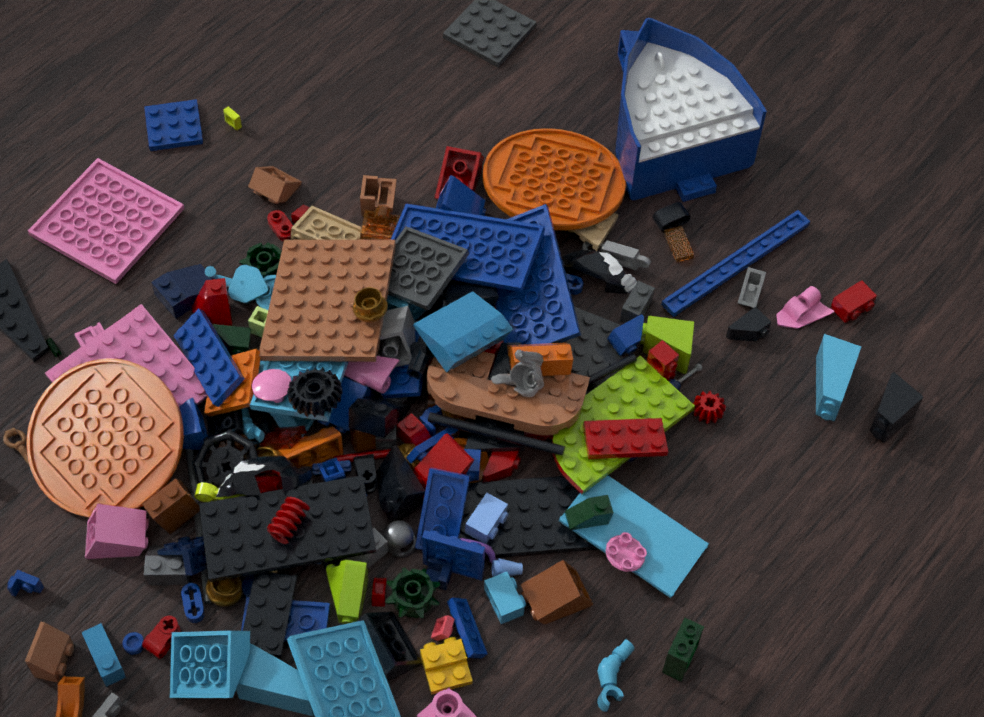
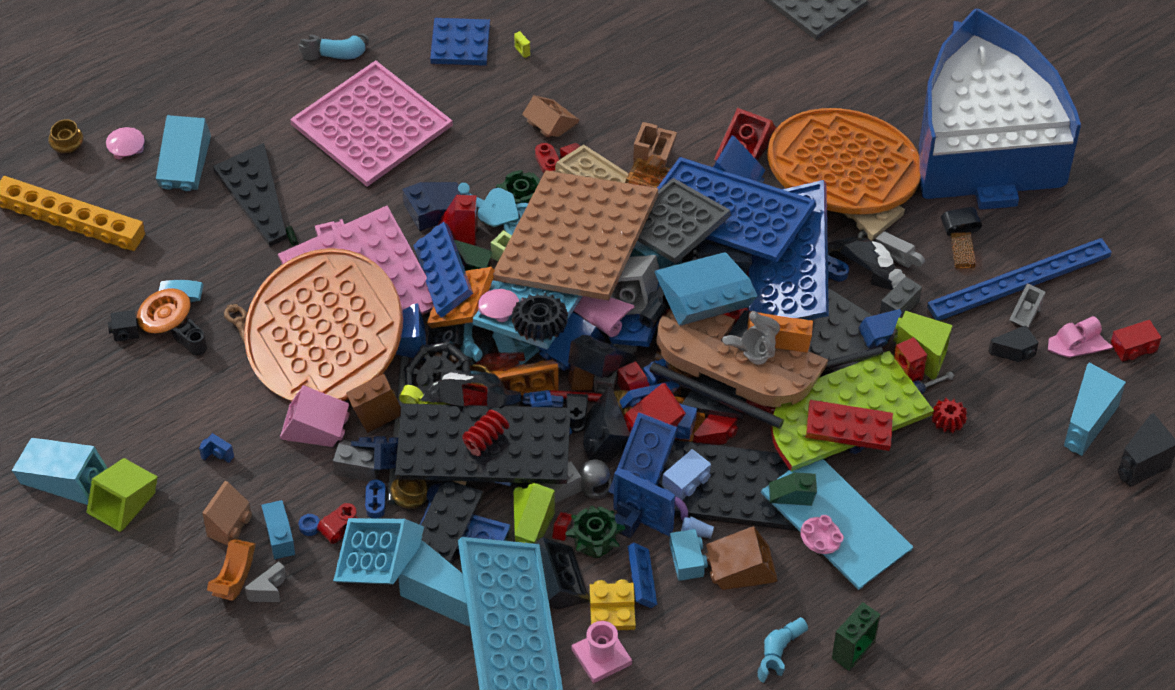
camera: 15 degrees right, 5 degrees down
(62, 152) = (338, 49): none -> medium azure piece
(369, 305) = (614, 243): pearl gold piece -> none
(443, 628) = (618, 570): coral plate -> none

